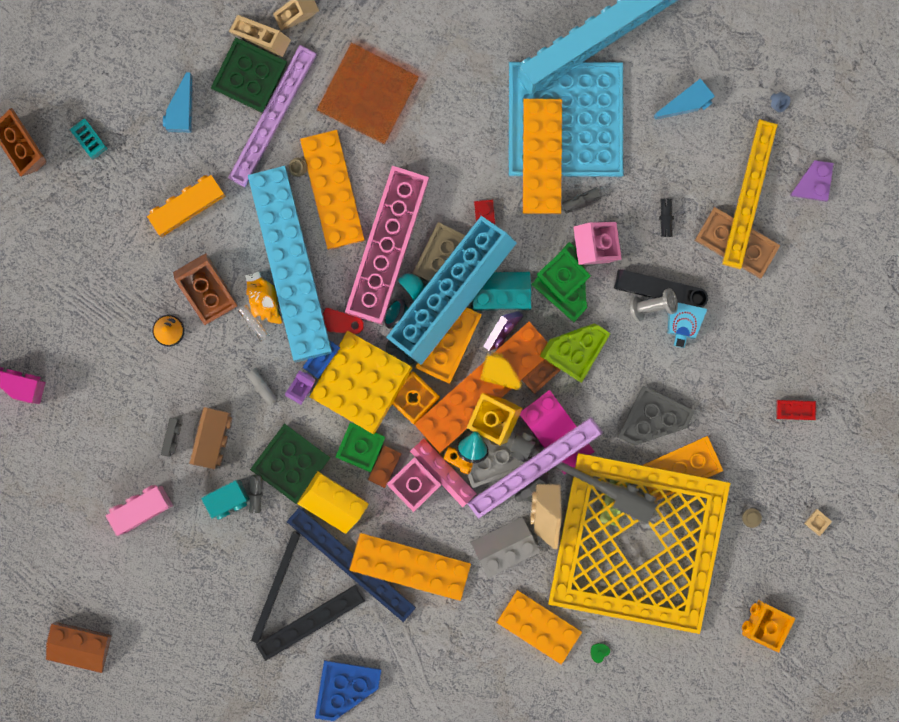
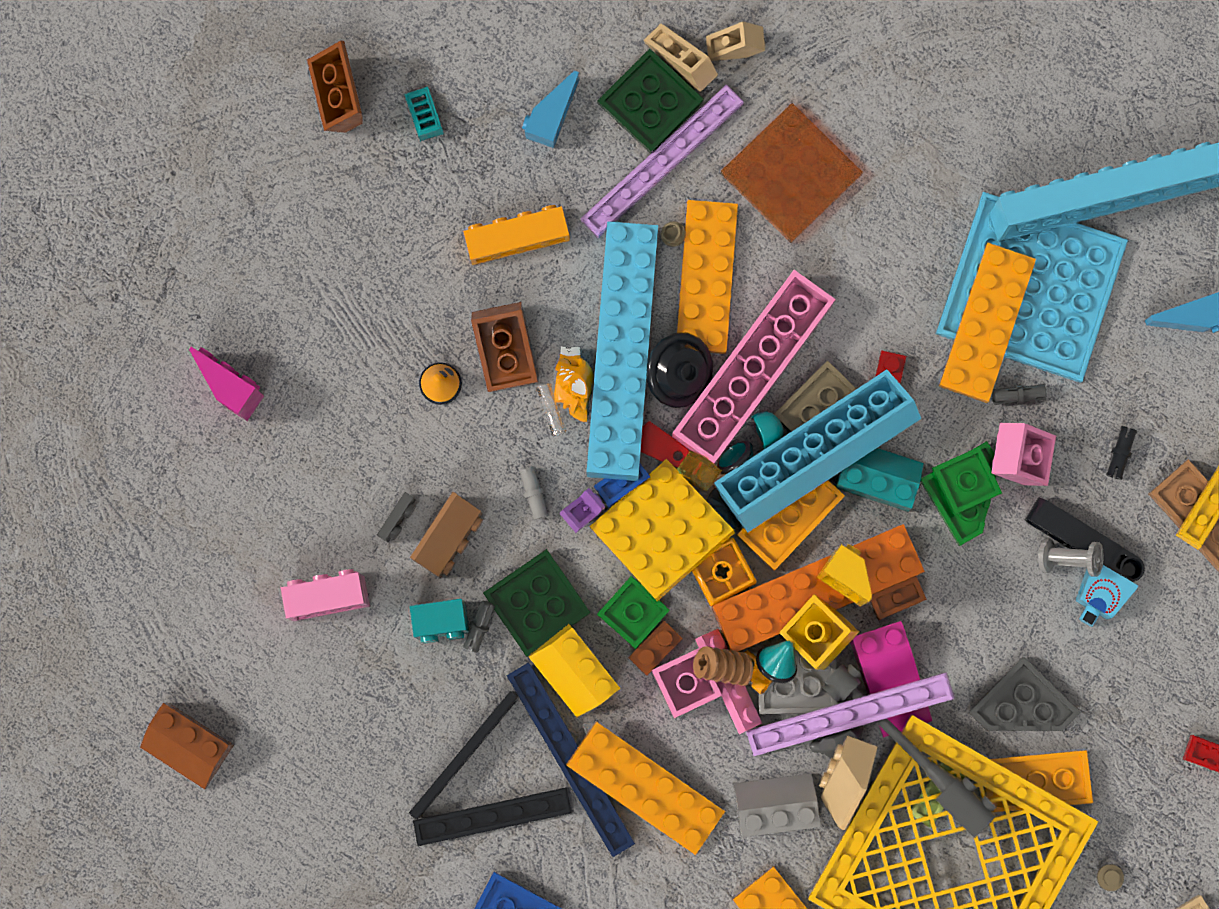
camera: 25 degrees right, 5 degrees down
(334, 264) = (679, 369): none -> black piece
(372, 331) = (698, 470): none -> clear yellow brick
(435, 464) = (723, 666): none -> medium nougat piece
(502, 330) = (864, 524): medium lavender wing -> none
(576, 350) = (951, 582): lime plate -> none

